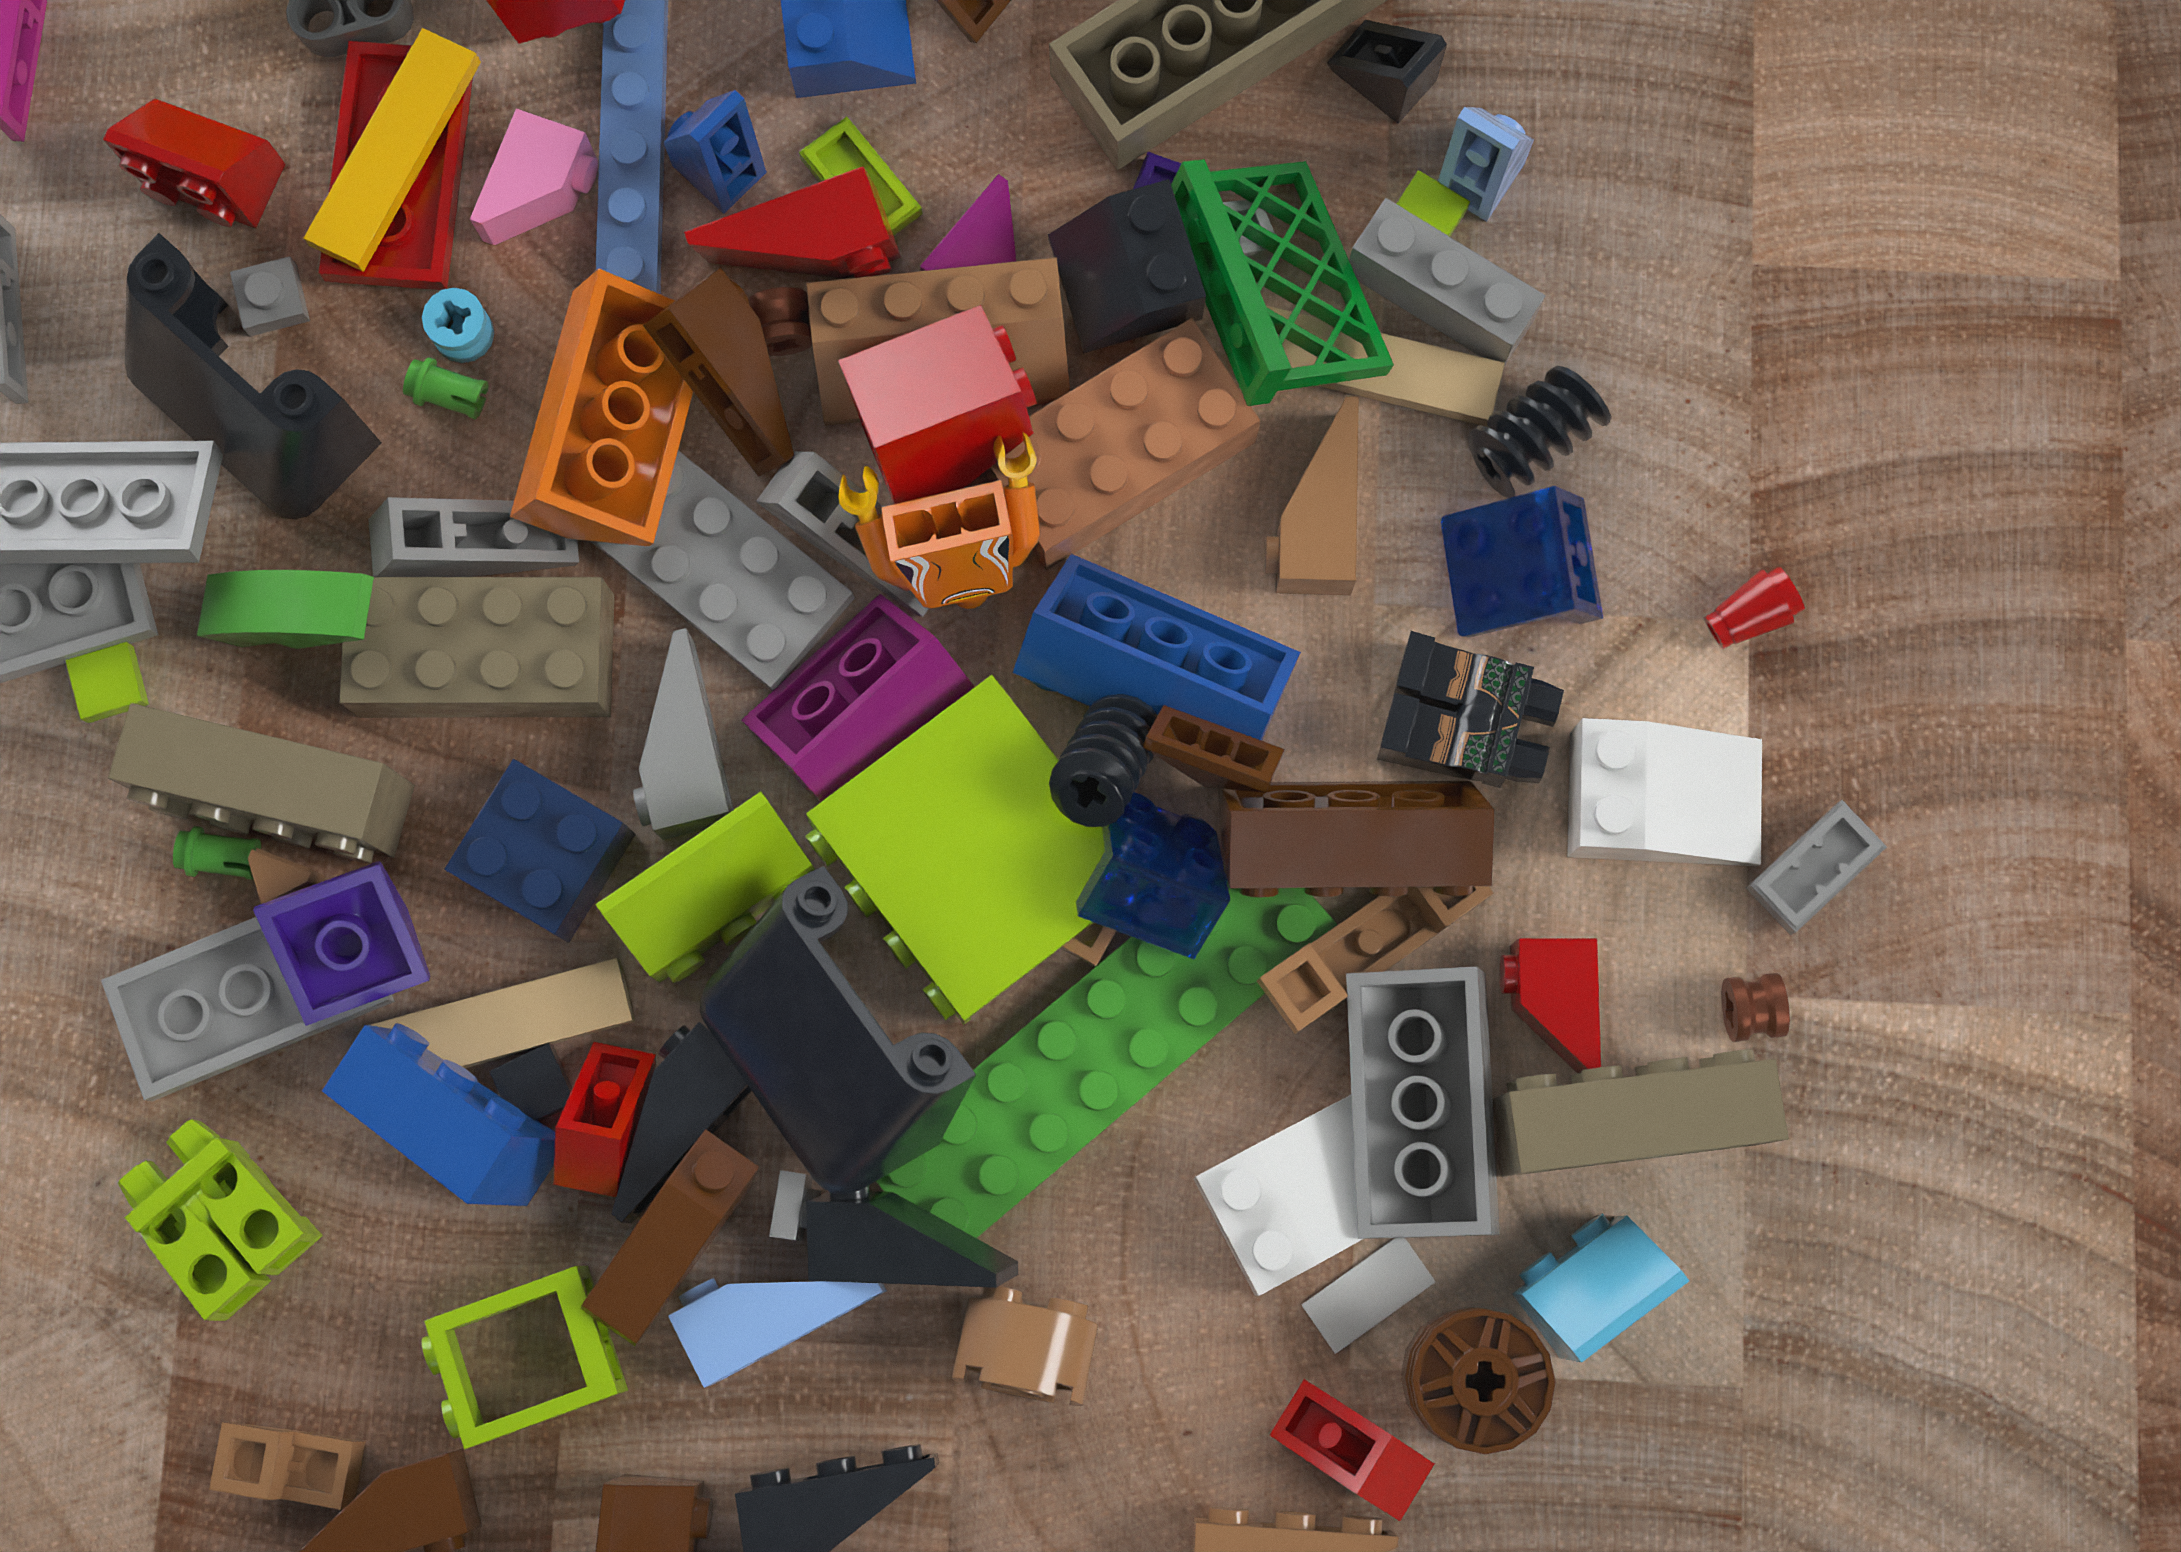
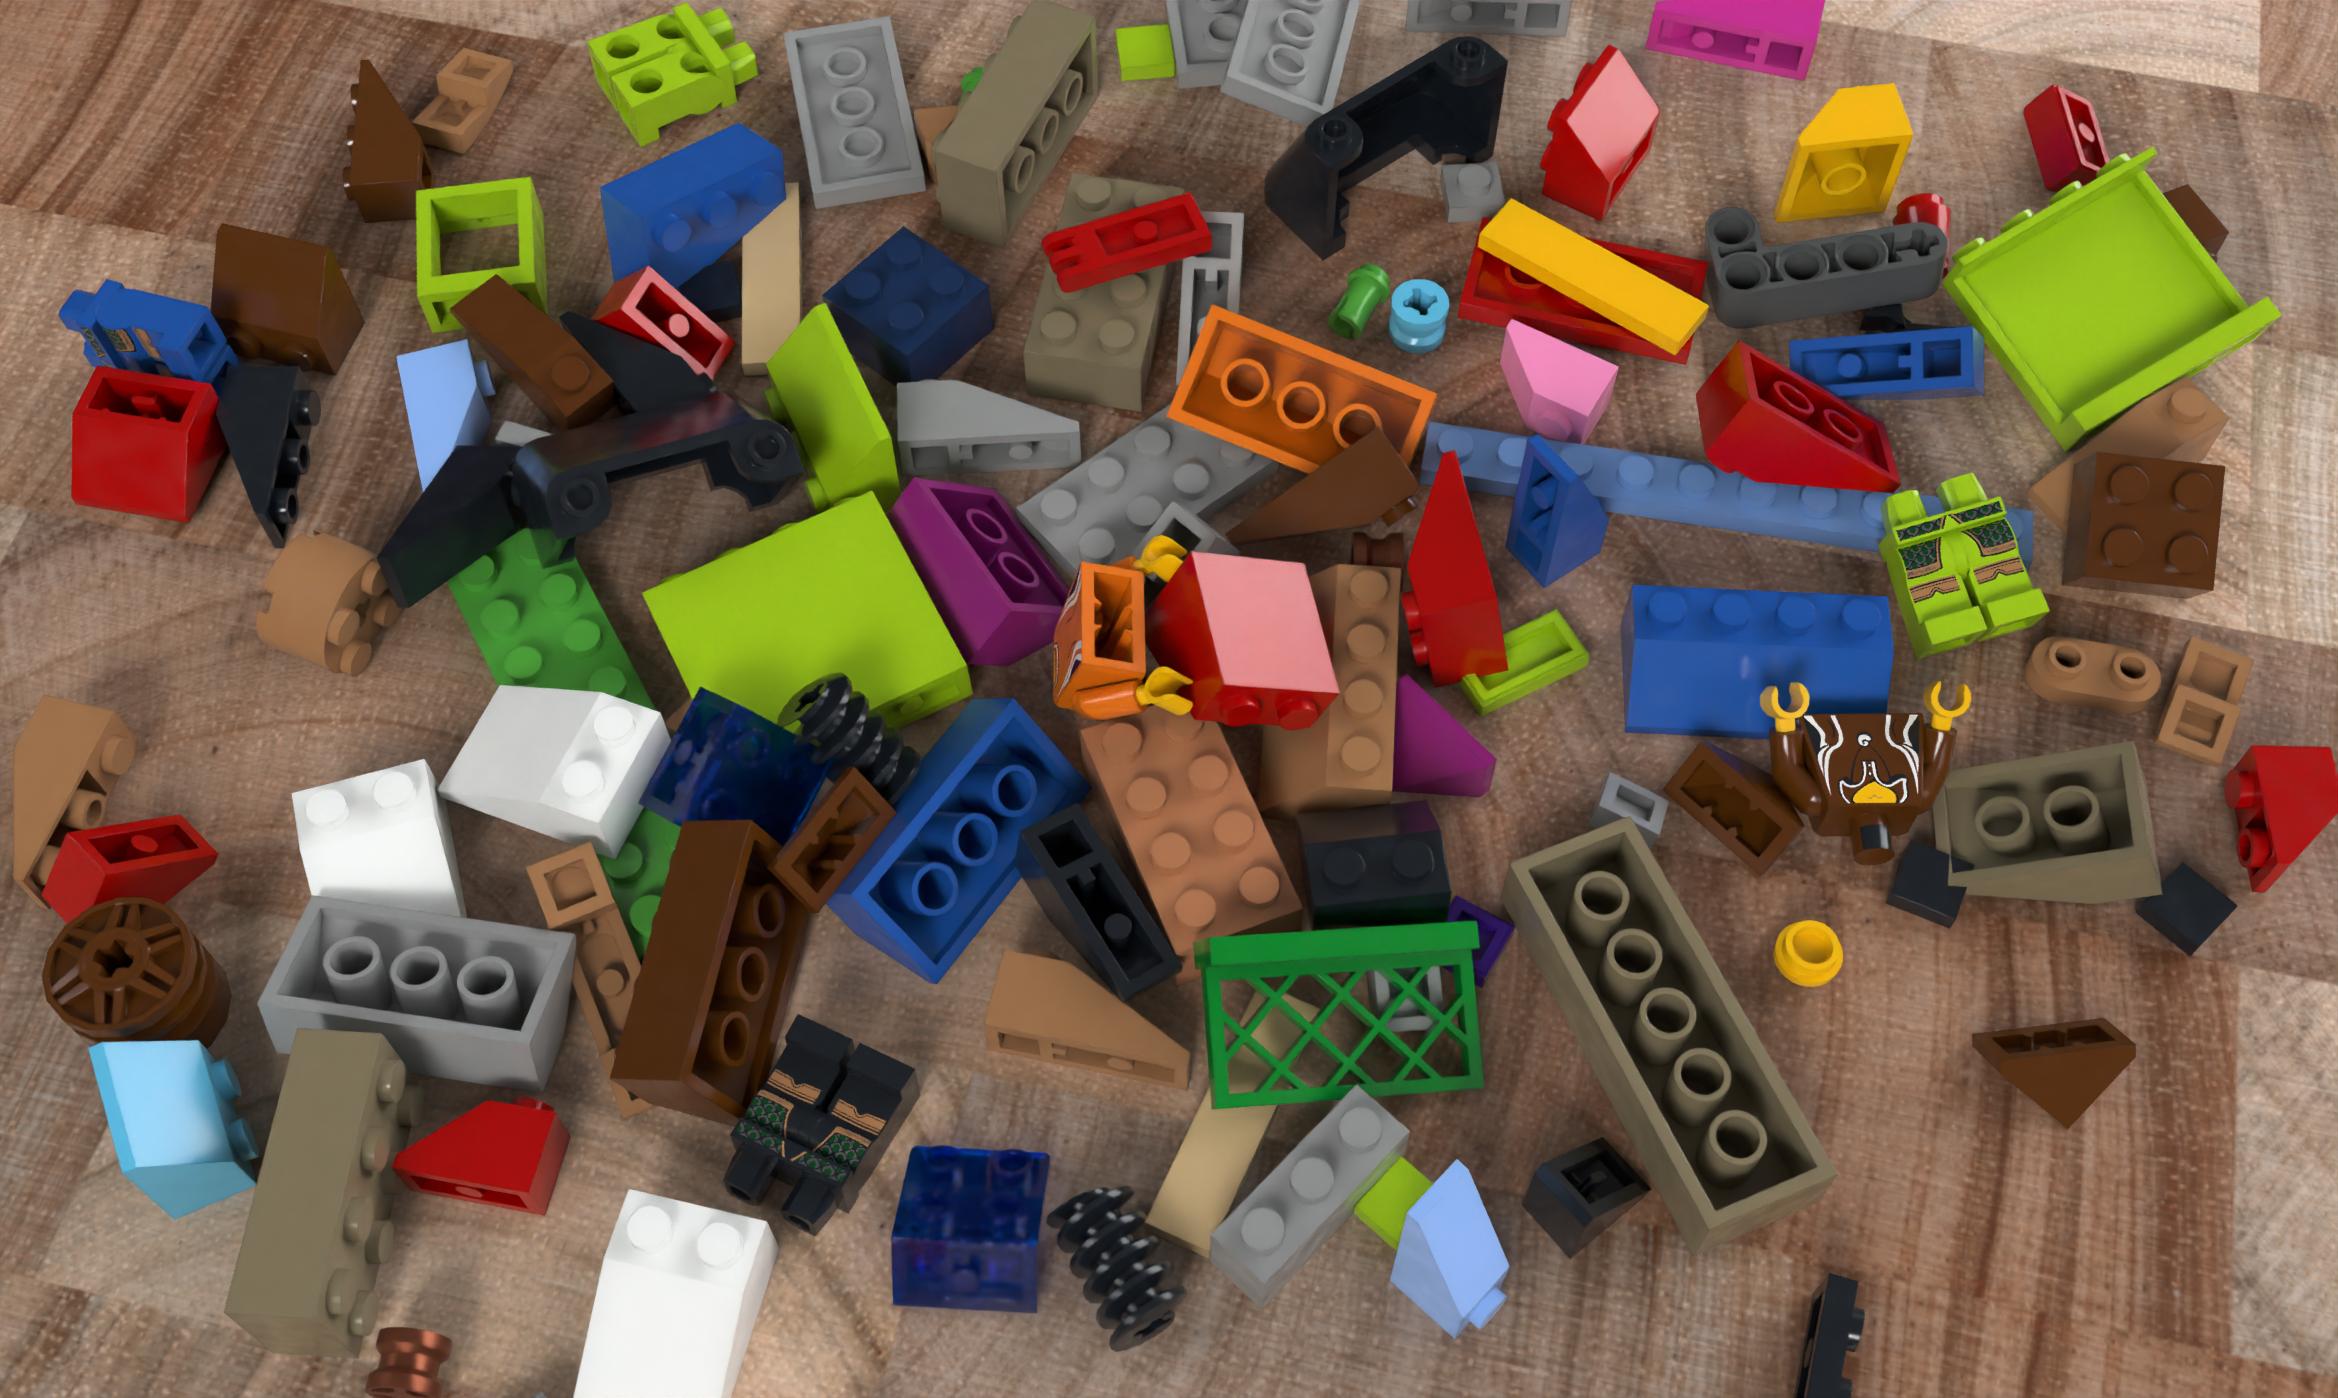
camera: 100 degrees right, 20 degrees down
(285, 607) = (1168, 147): bright green slope -> none
(343, 942) = (863, 159): dark purple slope -> none
(454, 603) = (1127, 242): none -> red hinge
(1016, 63) = (1621, 799): none -> light grey plate
(1169, 1052) = (560, 763): none -> white slope
(1216, 509) = (1093, 903): none -> black slope
(1368, 1293) = (269, 916): white sticker -> none

